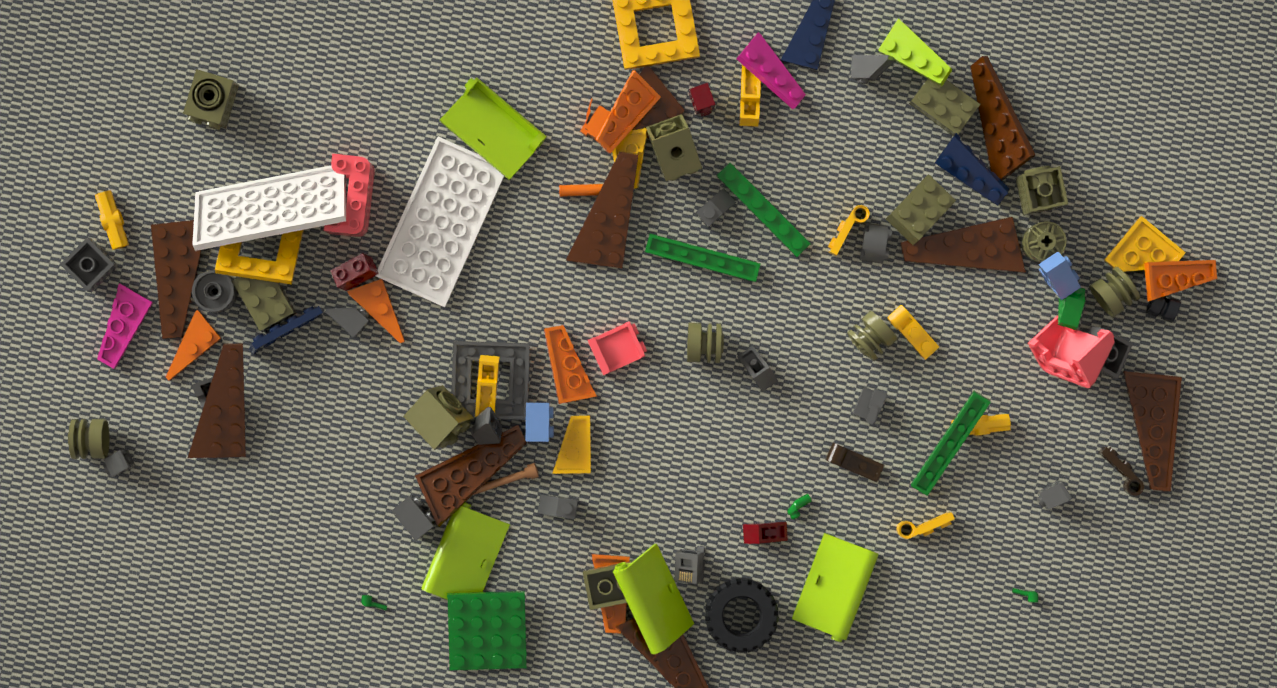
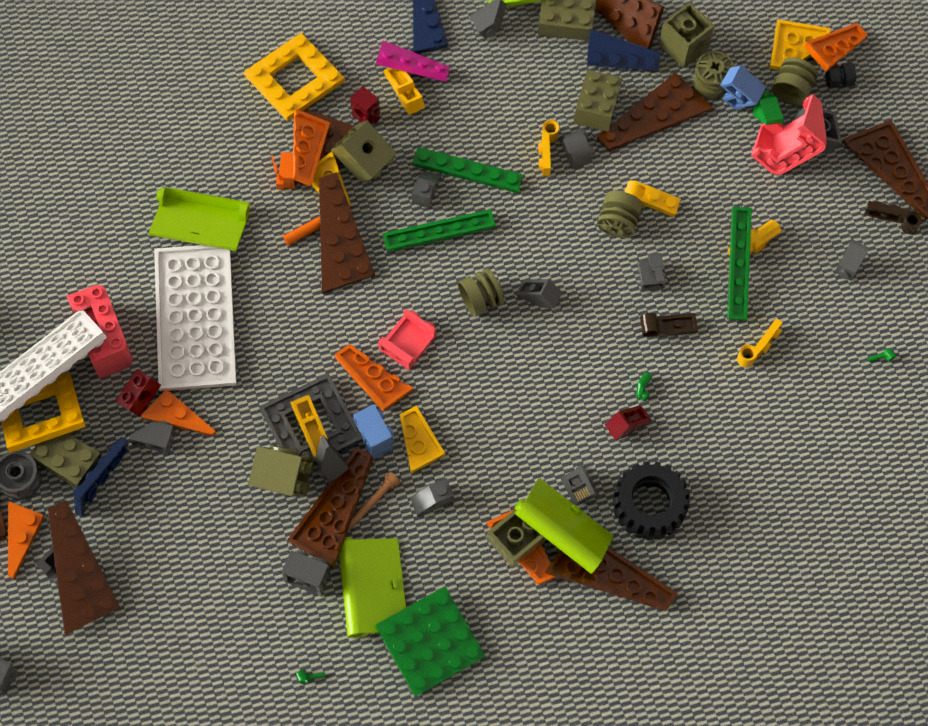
camera: 25 degrees left, 20 degrees down
(842, 581) = (722, 435): lime door -> none

